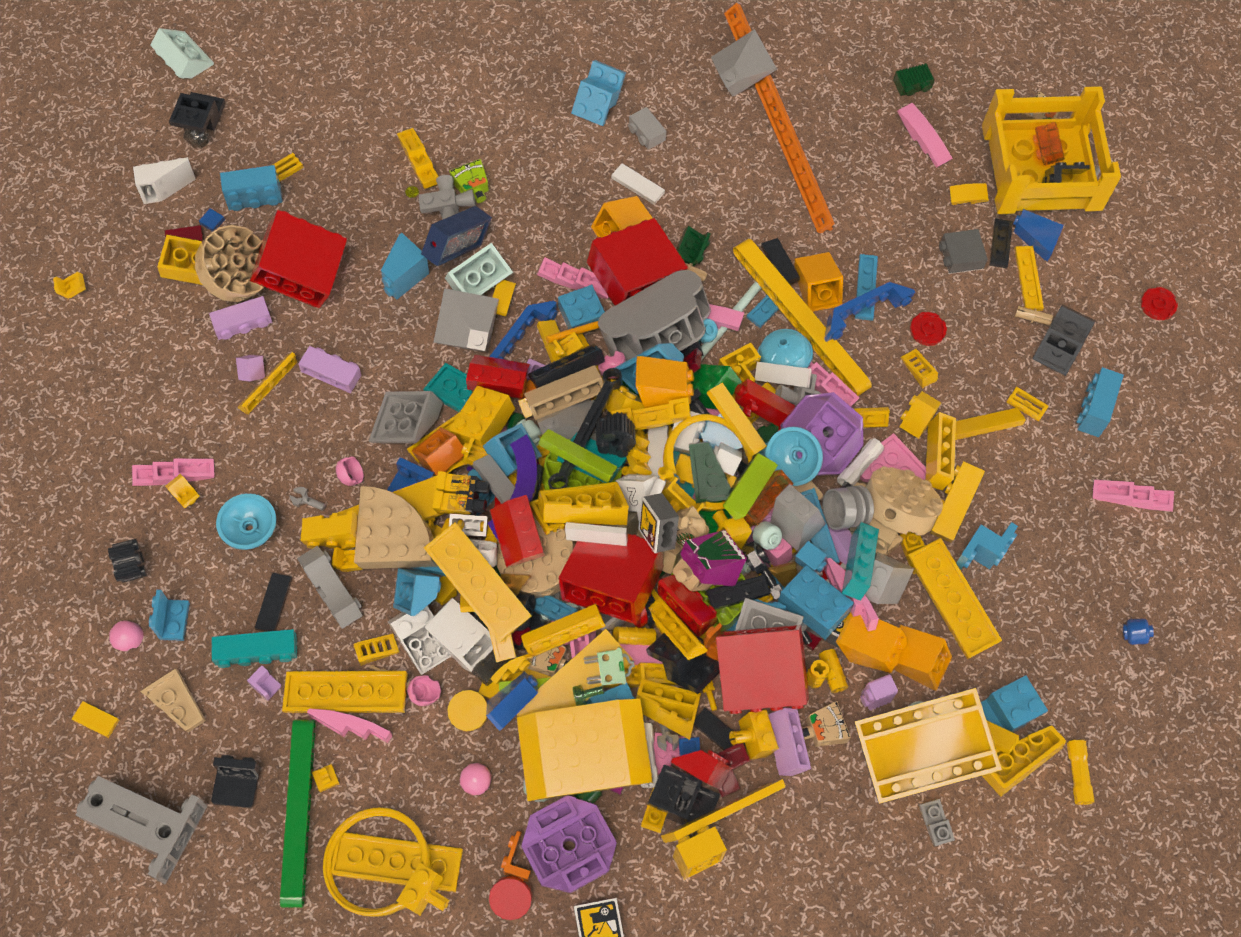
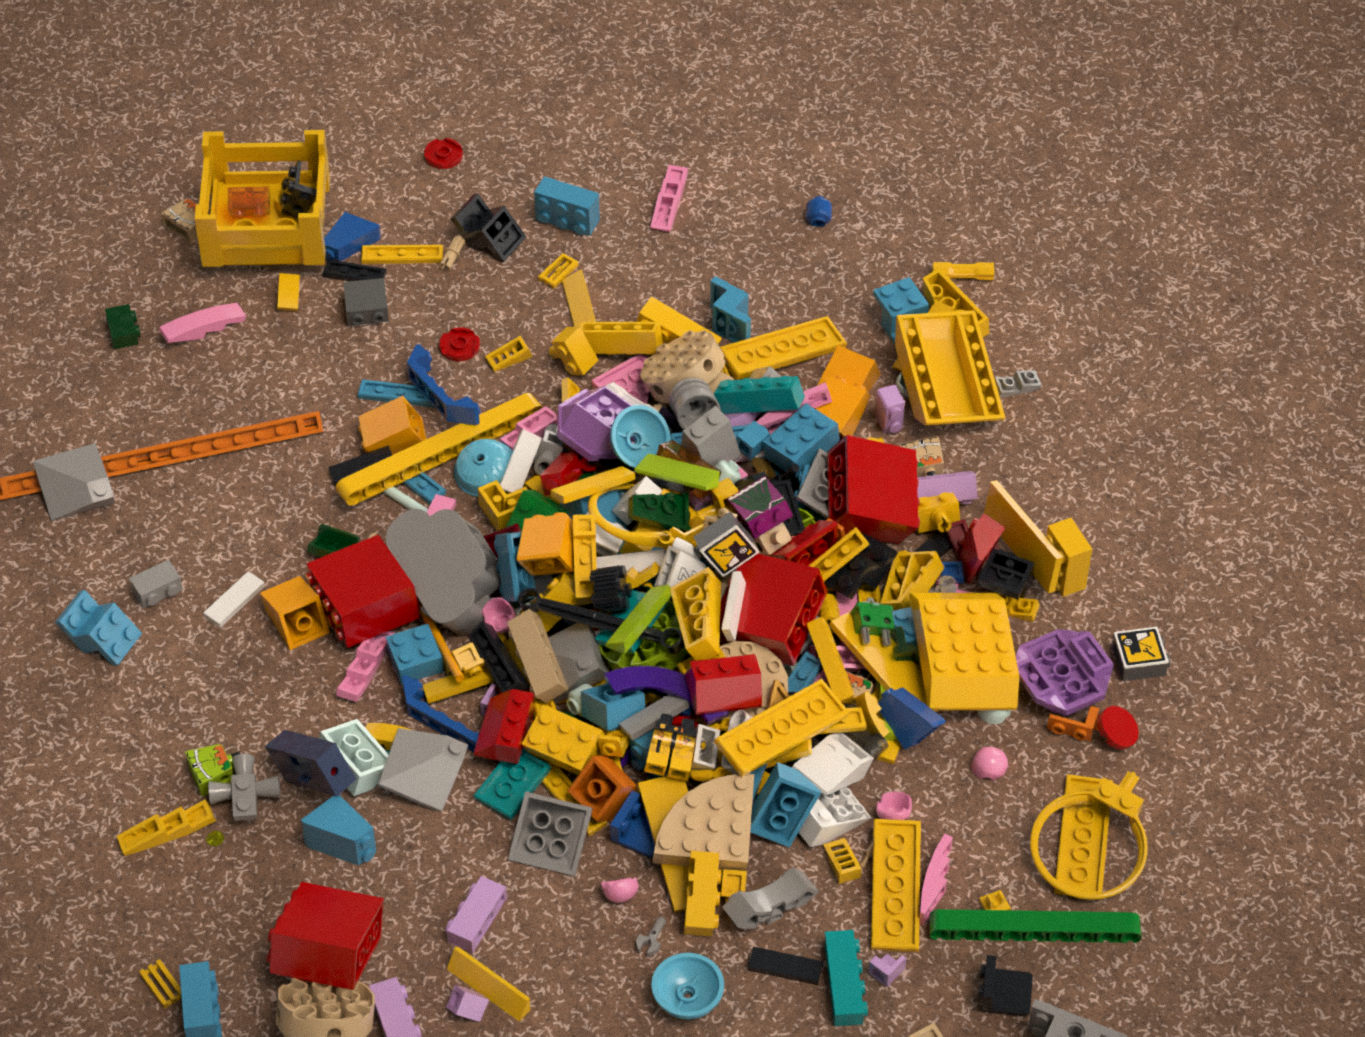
camera: 85 degrees left, 15 degrees down
(467, 710) = (914, 769): yellow tile -> none

